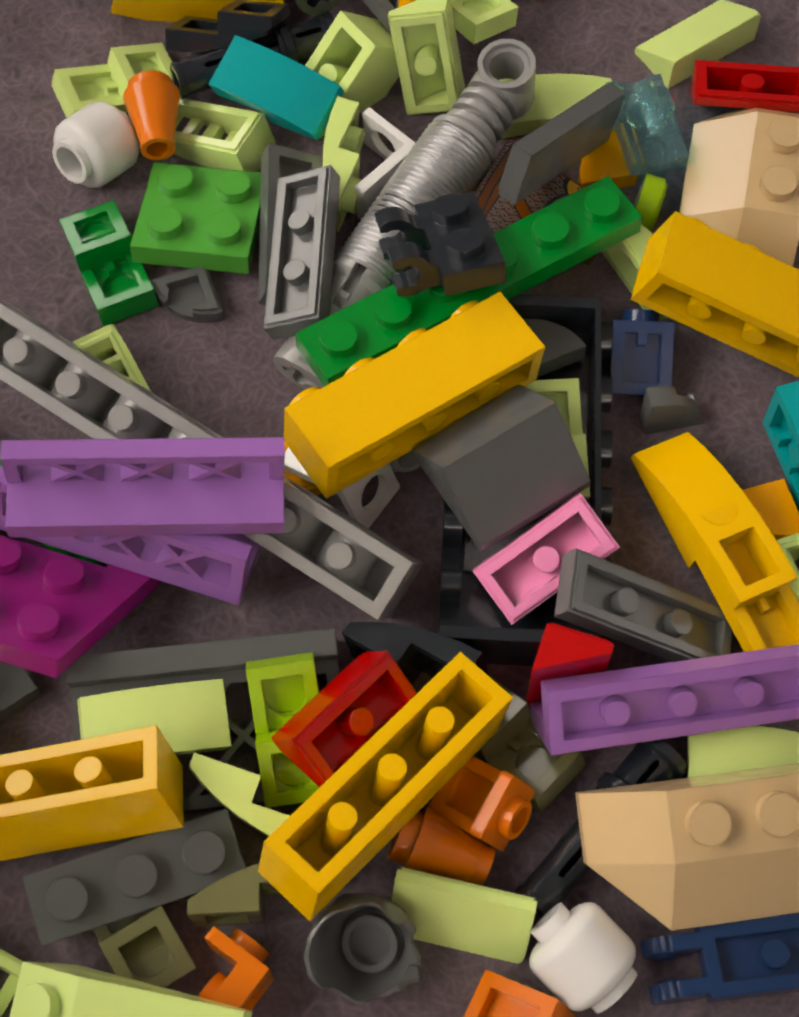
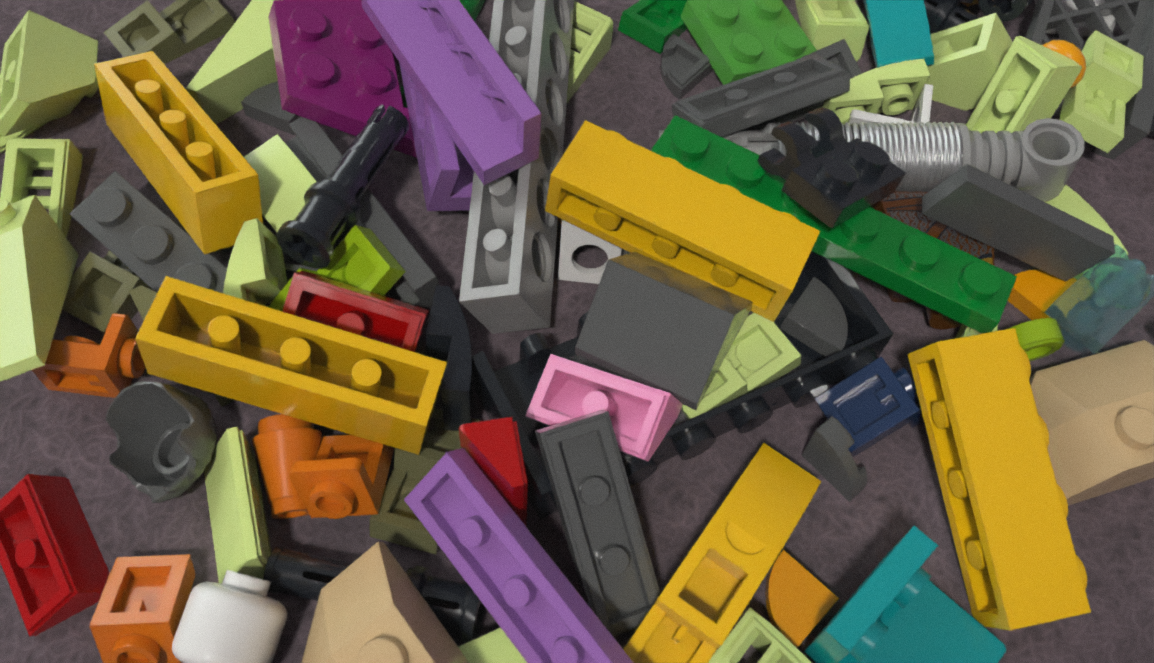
camera: 55 degrees right, 5 degrees down
(212, 675) = (335, 202): none -> black pin

